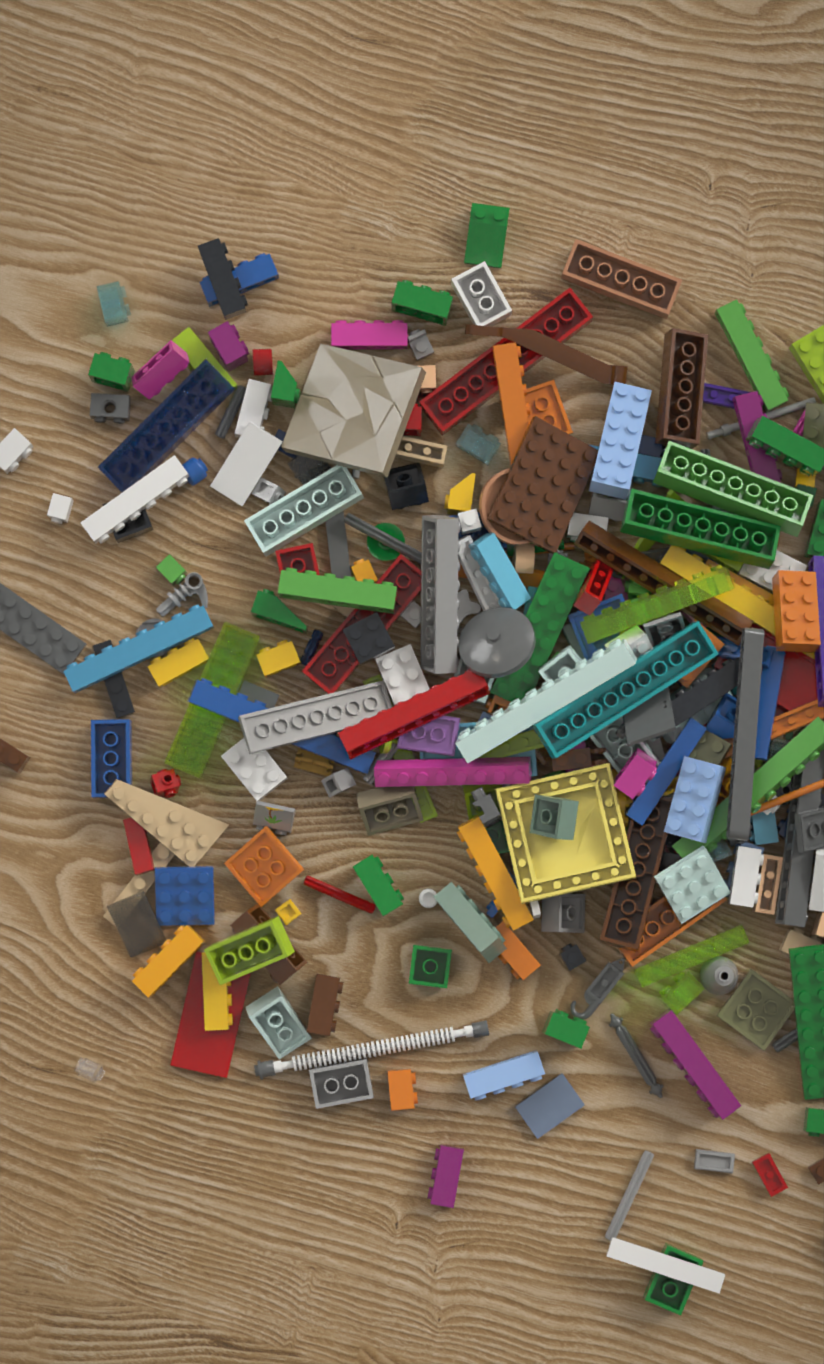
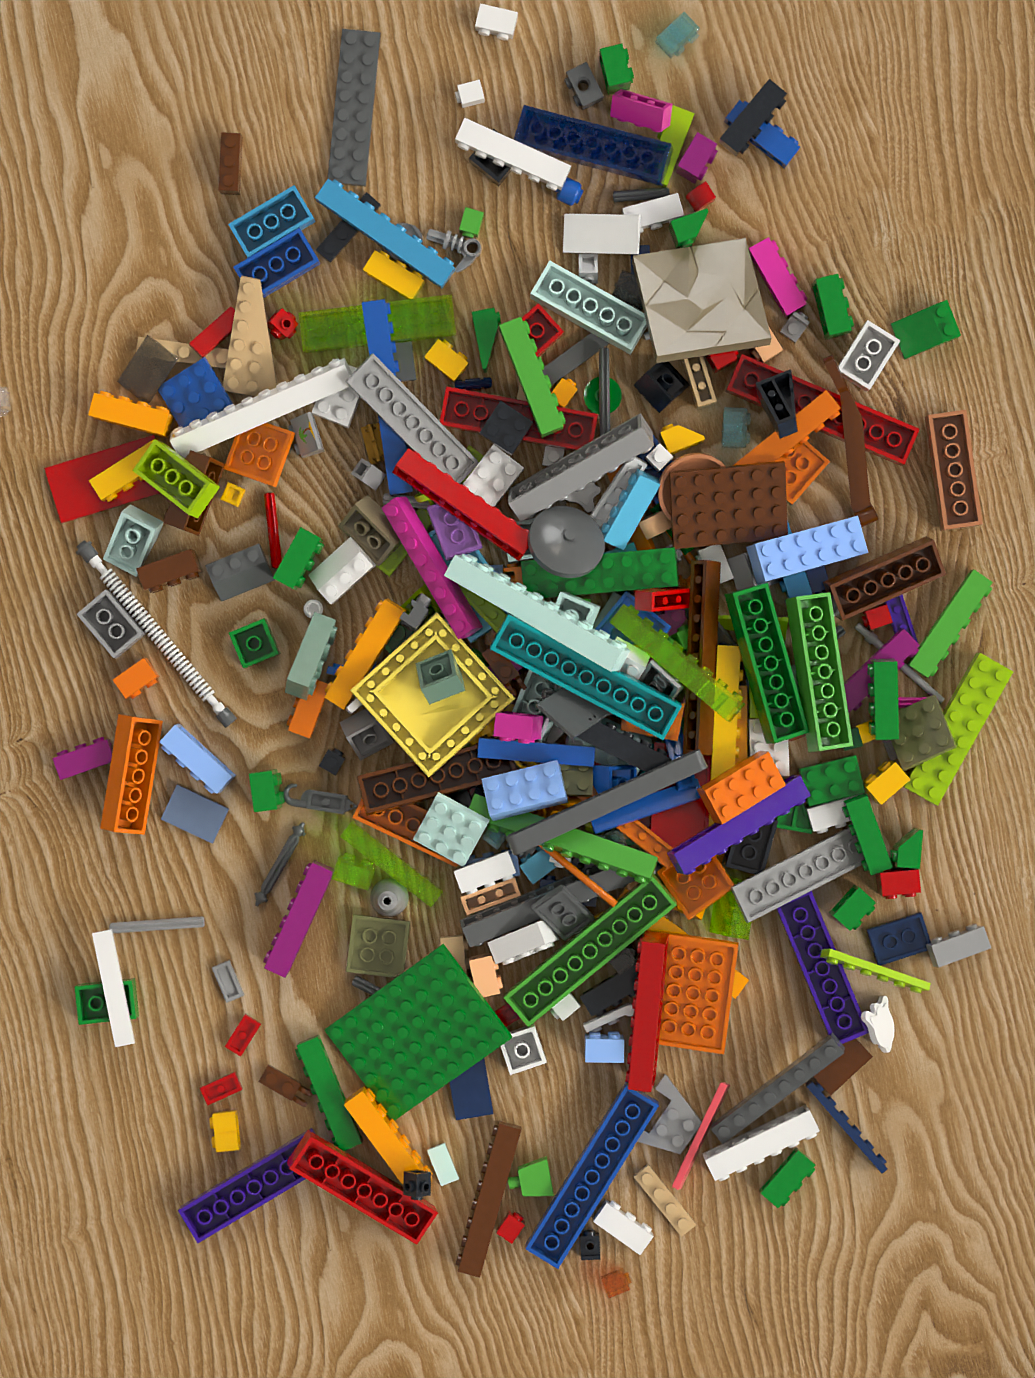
camera: 70 degrees right, 5 degrees up
(71, 741) = (271, 221): none -> dark azure brick
(229, 842) = (262, 408): none -> white brick
(360, 944) = (240, 572): none -> dark grey slope
(409, 854) = (341, 570): none -> white slope
(481, 392) = (778, 401): none -> black wedge
(484, 1141) = (131, 774): none -> orange brick
(711, 414) = (876, 617): none -> red brick
(806, 1221) = (221, 1088): none -> red plate

